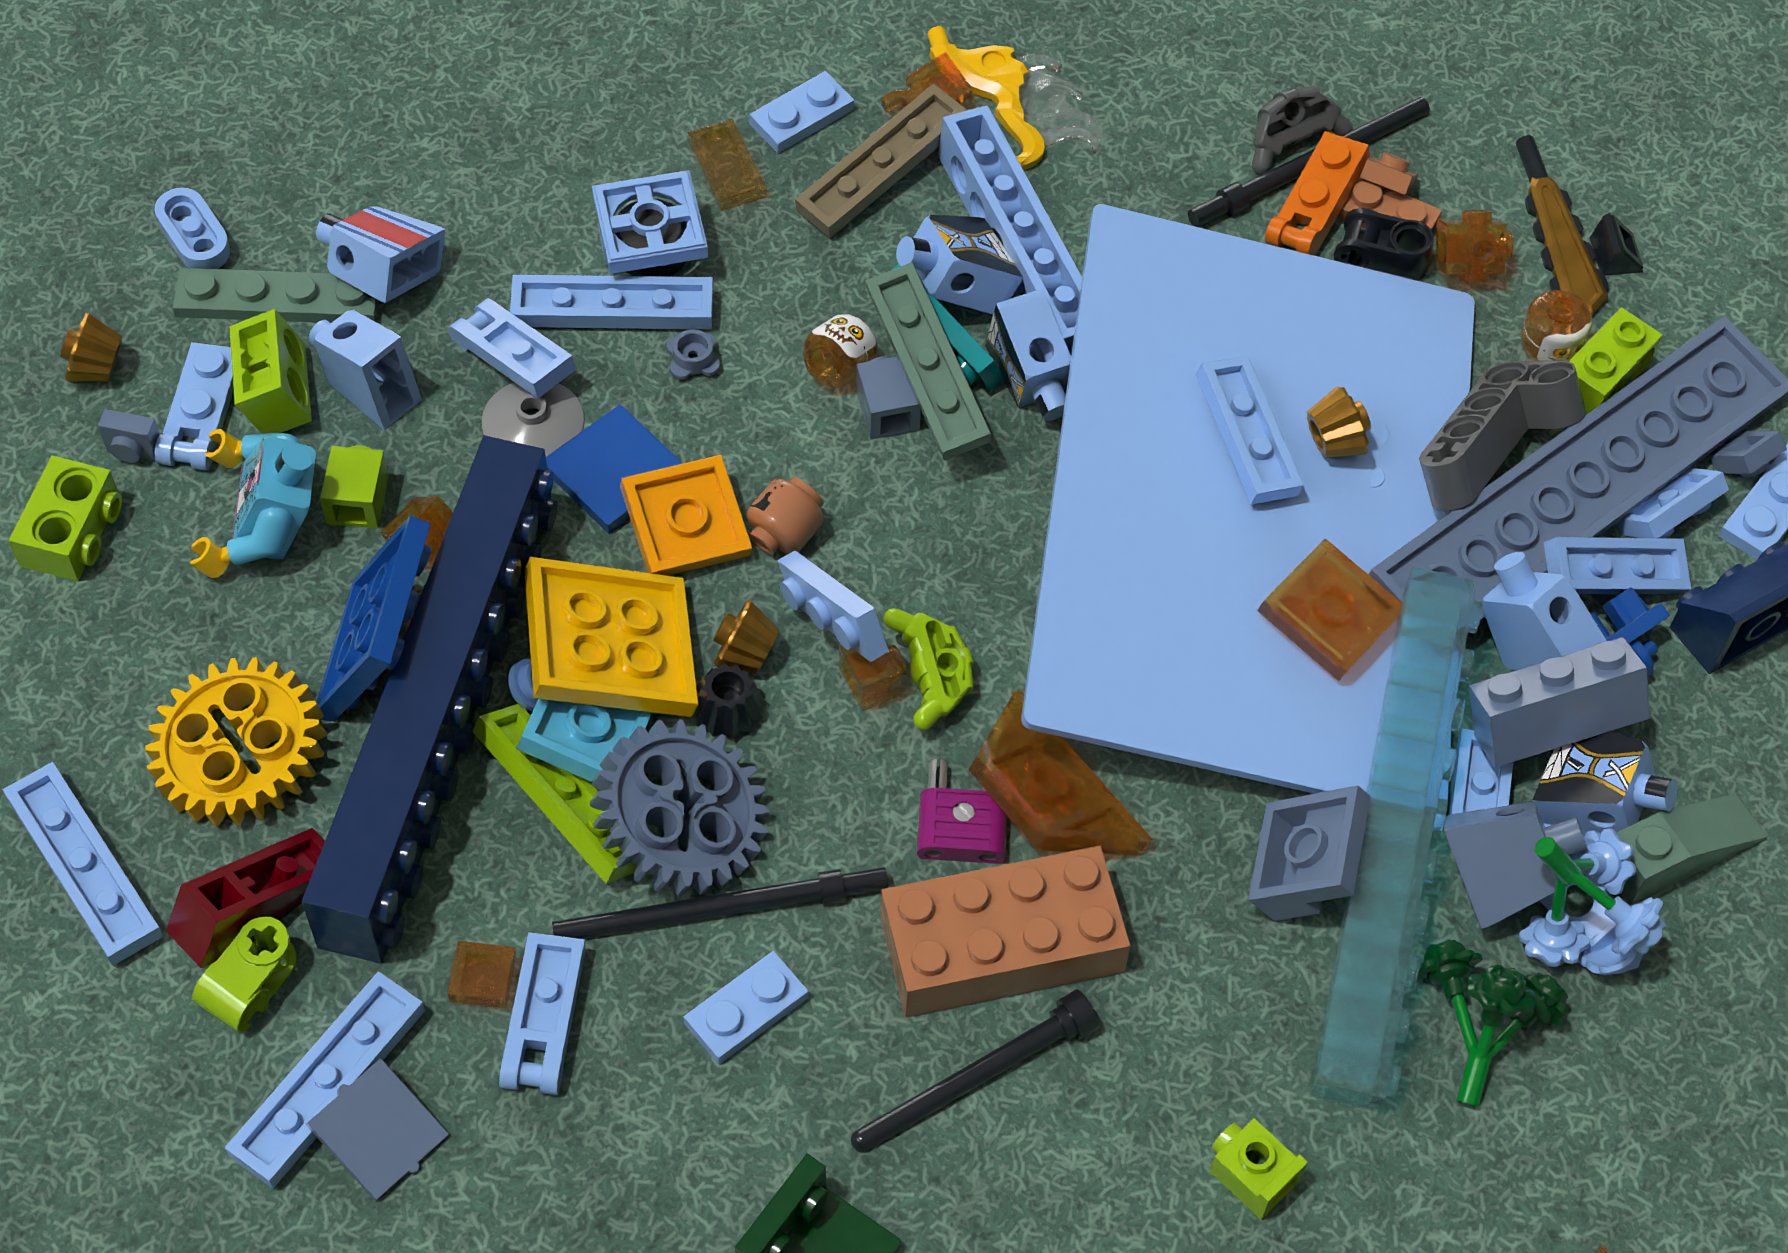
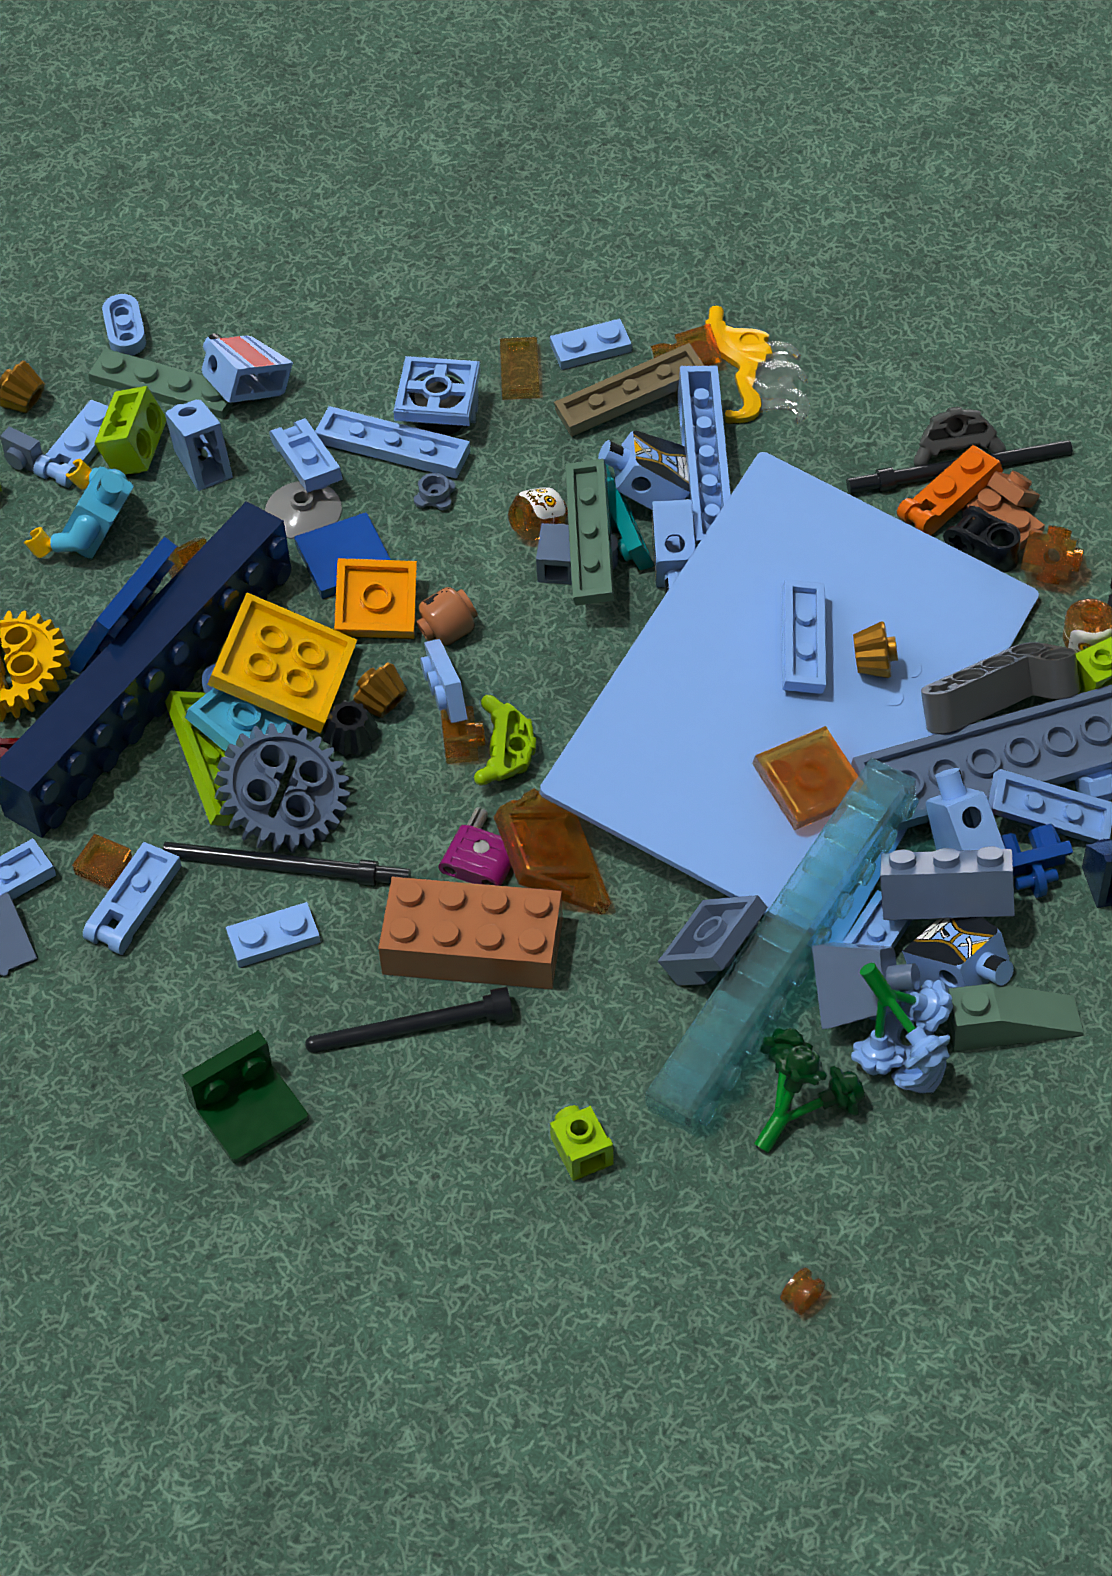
camera: 25 degrees right, 5 degrees down
(354, 486) = (155, 517): lime brick -> none

